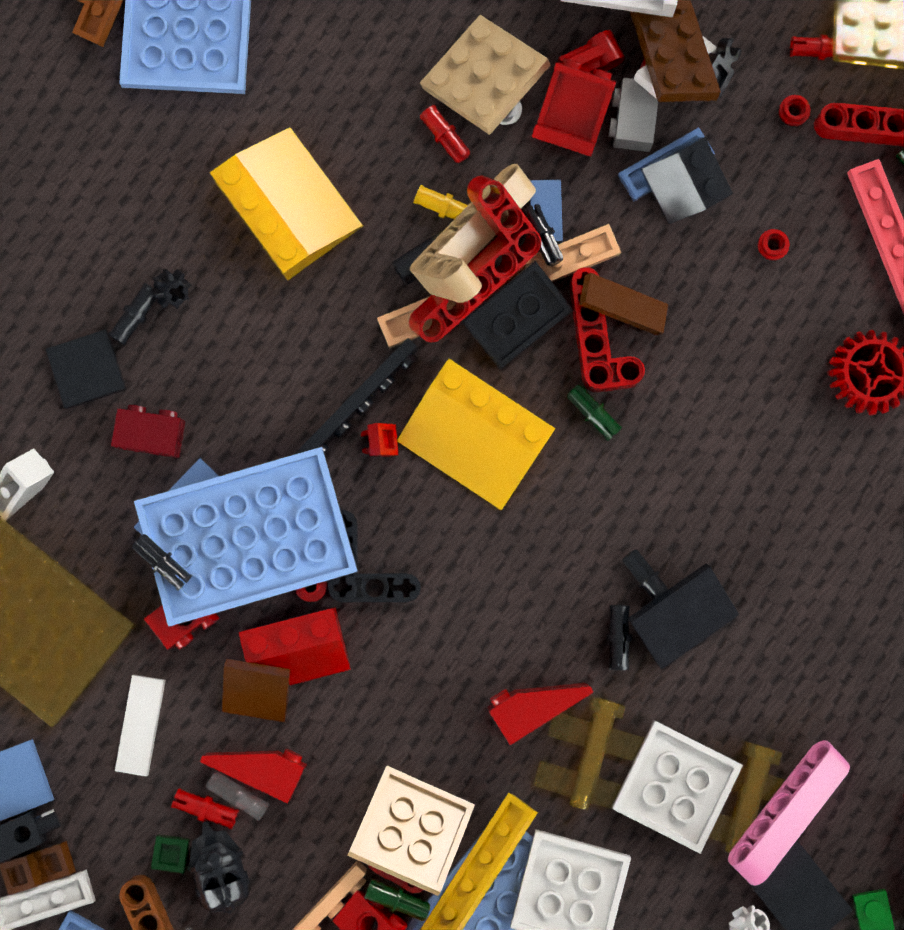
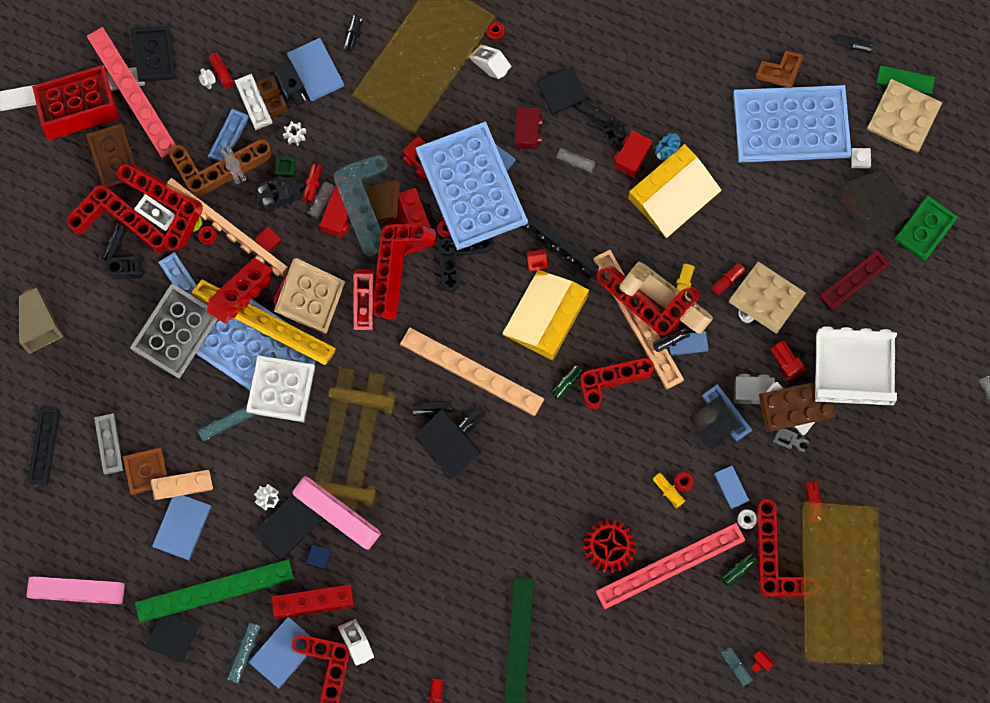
camera: 85 degrees right, 10 degrees down
(108, 841) = (294, 138): none -> white gear
(140, 725) = (357, 143): white tile -> none
(161, 561) = (451, 138): black axle -> none
(213, 262) = (633, 153): none -> red brick
(213, 357) = (575, 160): none -> clear pin
(219, 206) = (664, 151): none -> dark azure gear
(251, 728) = (360, 200): none -> clear light blue beam
(298, 892) = (268, 240): none -> red tile
(370, 686) = (390, 264): none -> red beam
(397, 900) = (269, 290): dark green axle -> none
(420, 736) = (363, 299): none -> red slope
(517, 314) = (621, 330): black tile -> none
(530, 708) = (382, 350): red slope -> none
(561, 566) = (472, 371): none -> light nougat plate
(574, 107) = (751, 351): red panel -> none
(623, 304) = (634, 390): reddish brown tile -> none
(677, 786) = (346, 447): white plate -> none
(787, 171) = (731, 487): none -> medium blue tile
(787, 269) = (669, 491): none -> yellow axle
(798, 102) = (777, 488): red plate -> none
(846, 145) = (749, 513): none -> white plate
(851, 845) = (318, 557): none -> dark blue tile

